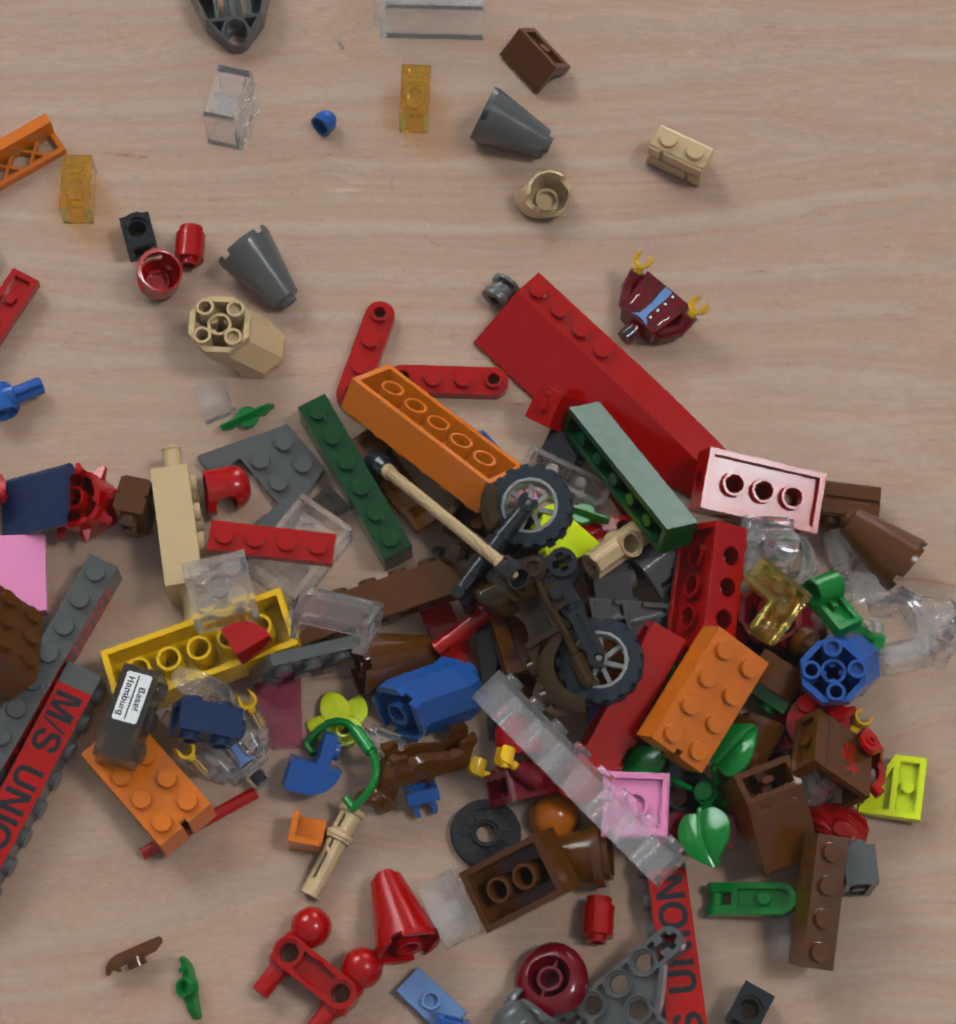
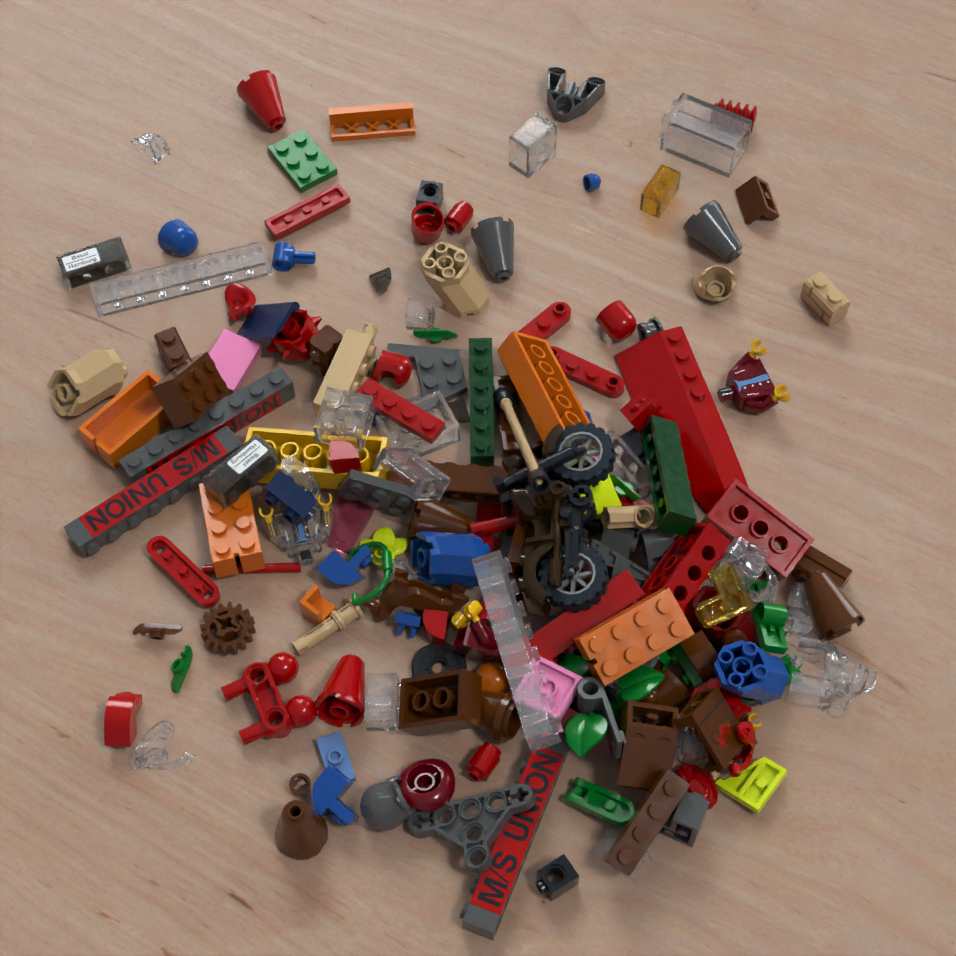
camera: 30 degrees right, 10 degrees down
(77, 189) = (407, 154): clear yellow brick -> none
(121, 869) = (183, 571): none -> red plate
(140, 375) = (381, 280): none -> clear smoke tile
(230, 912) = (227, 637): none -> reddish brown gear
(456, 787) = (435, 626): none -> red brick
(458, 299) = (617, 321): none -> red helmet
(691, 790) = (593, 698): none -> dark grey door

